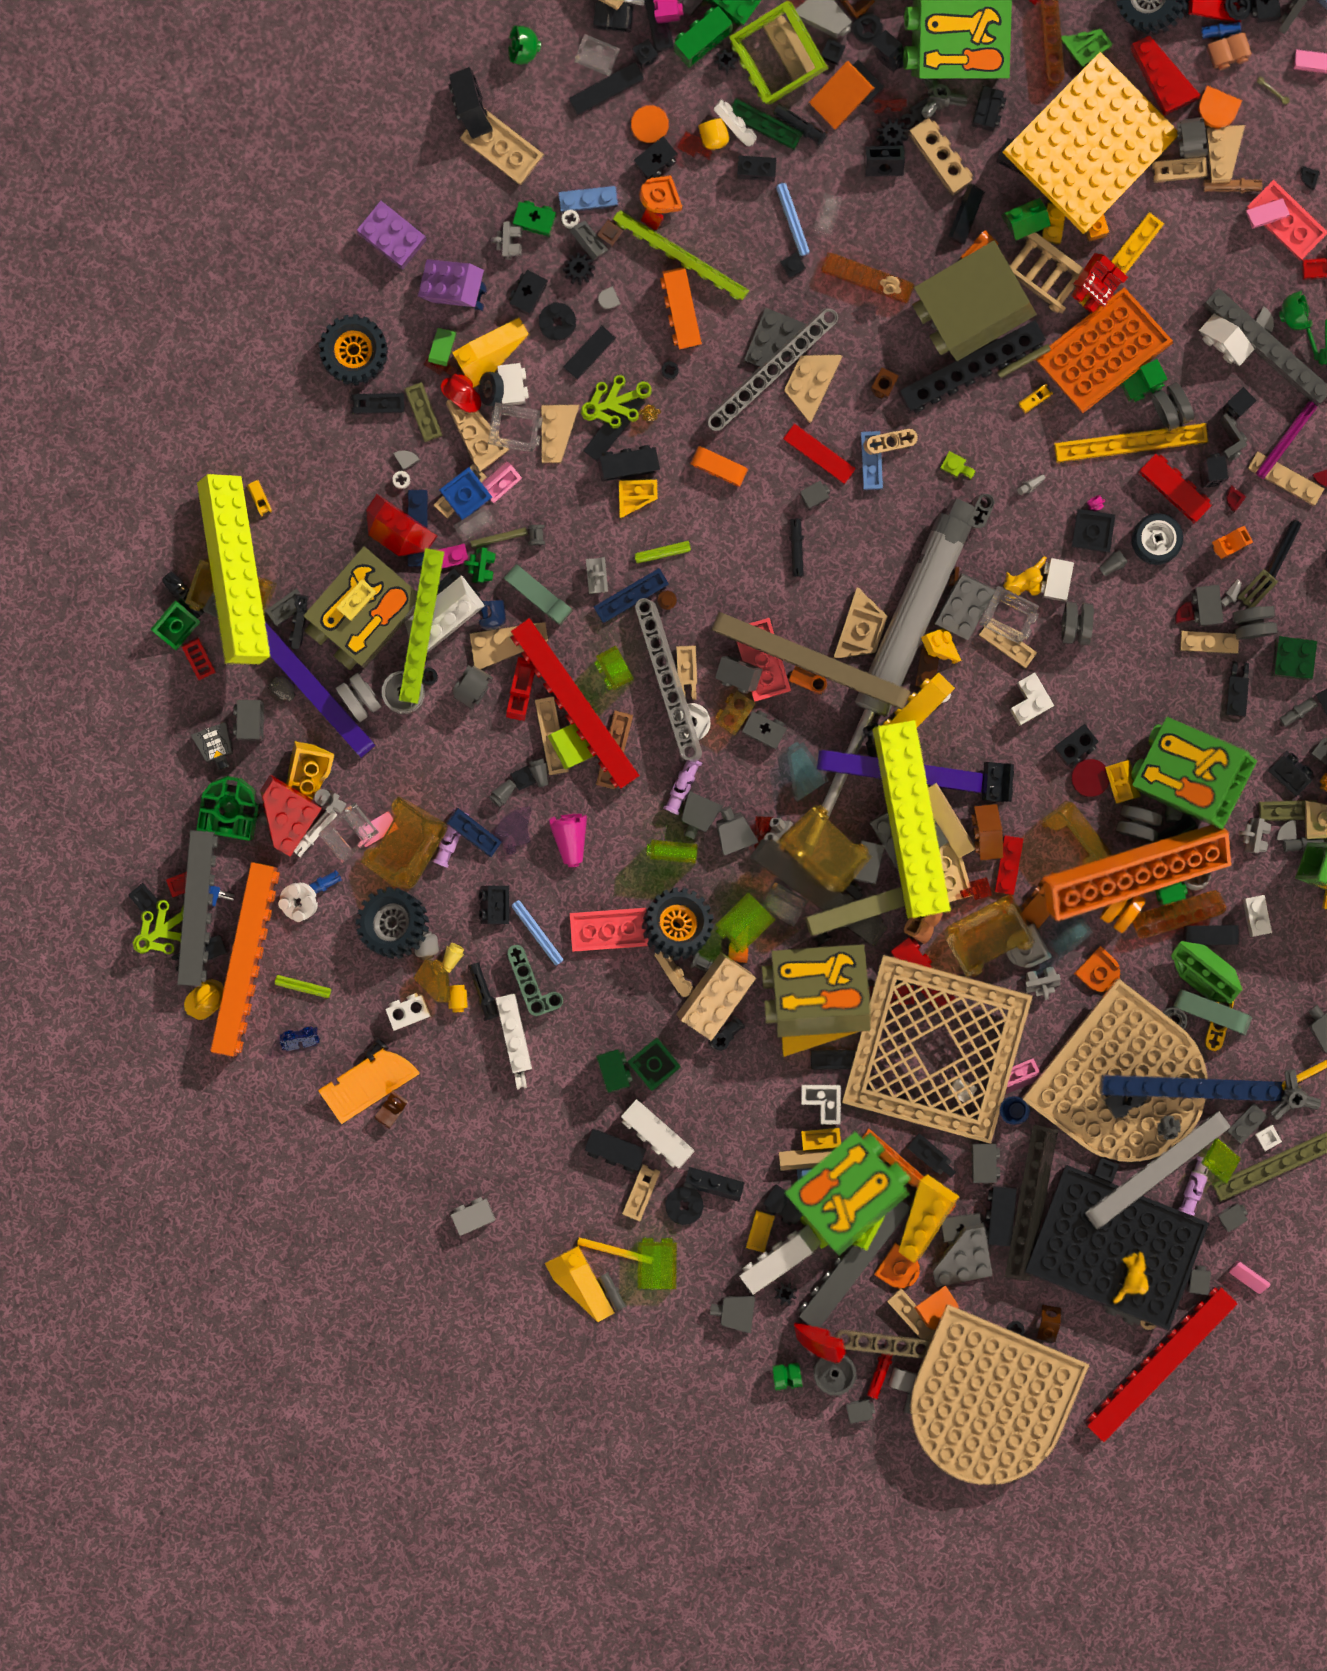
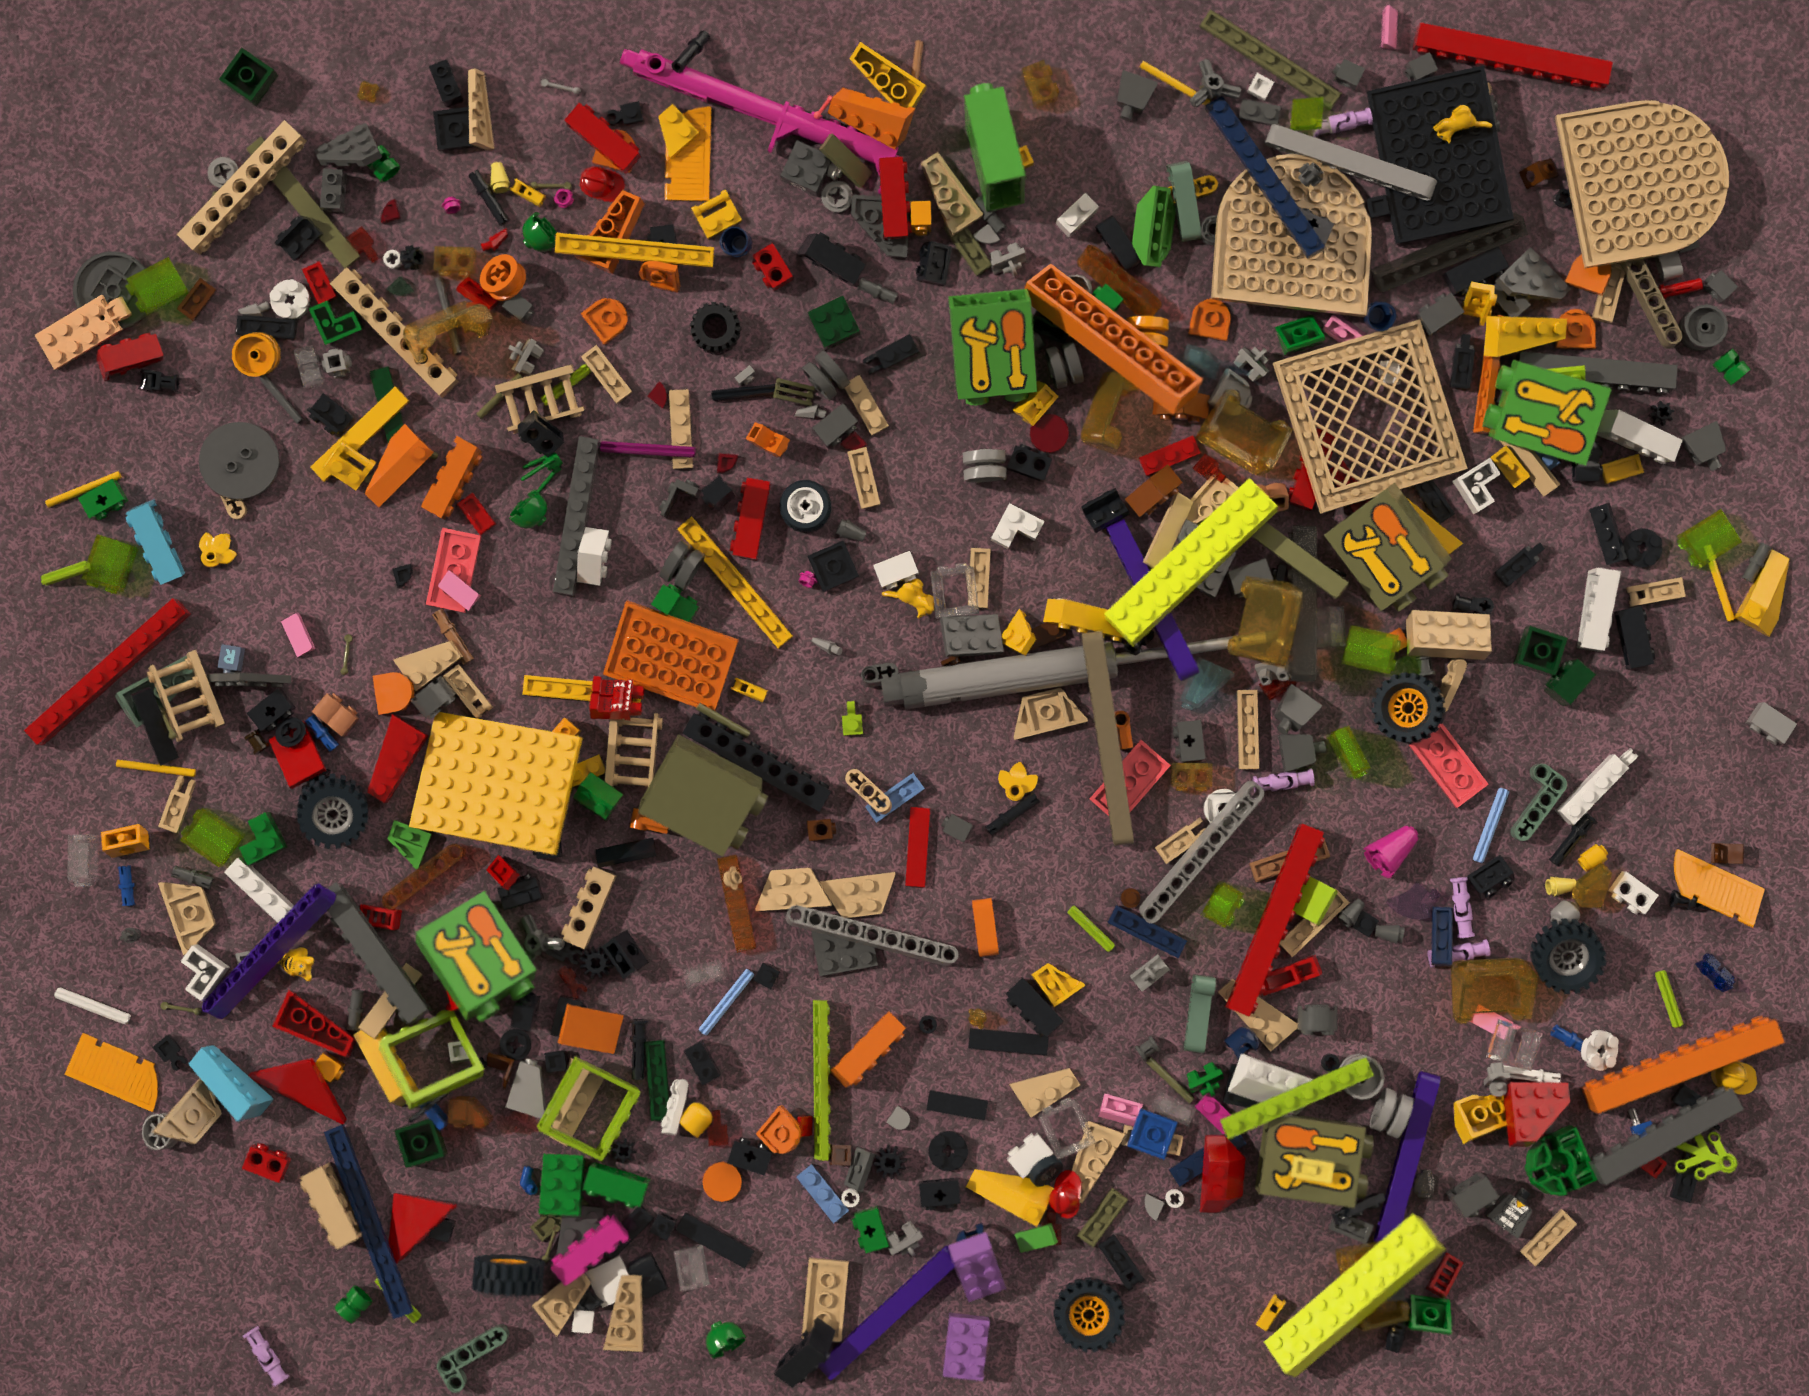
camera: 125 degrees left, 0 degrees up
(174, 761) = (1548, 1237): none -> tan plate
(457, 186) = (888, 1313): none -> dark purple beam
(488, 866) = (1461, 905): none -> lavender piece
(613, 402) = (988, 1055): lime plant -> none
(736, 1094) = (1518, 564): none -> black hinge
(739, 674) = (1156, 794): dark grey brick -> none
(743, 784) = (1247, 729): none -> tan plate
(820, 1342) = (1687, 355): red slope -> none
(823, 570) = (1017, 778): none -> yellow plate
(850, 330) = (792, 888): none -> tan wing
(975, 1201) = (1479, 301): none -> yellow bracket
(1014, 104) = (503, 872): none -> red plate
(1041, 1036) = (1299, 335): none -> green slope
(1077, 623) = (925, 529): dark grey wheel -> none
(1100, 706) = (985, 465): none -> light grey wheel
(1150, 602) = (863, 478): none -> tan plate
(1239, 404) = (644, 509): black brick -> none
(1265, 319) = (553, 534): light grey tile -> none
(1295, 558) = (745, 376): none -> light grey plate

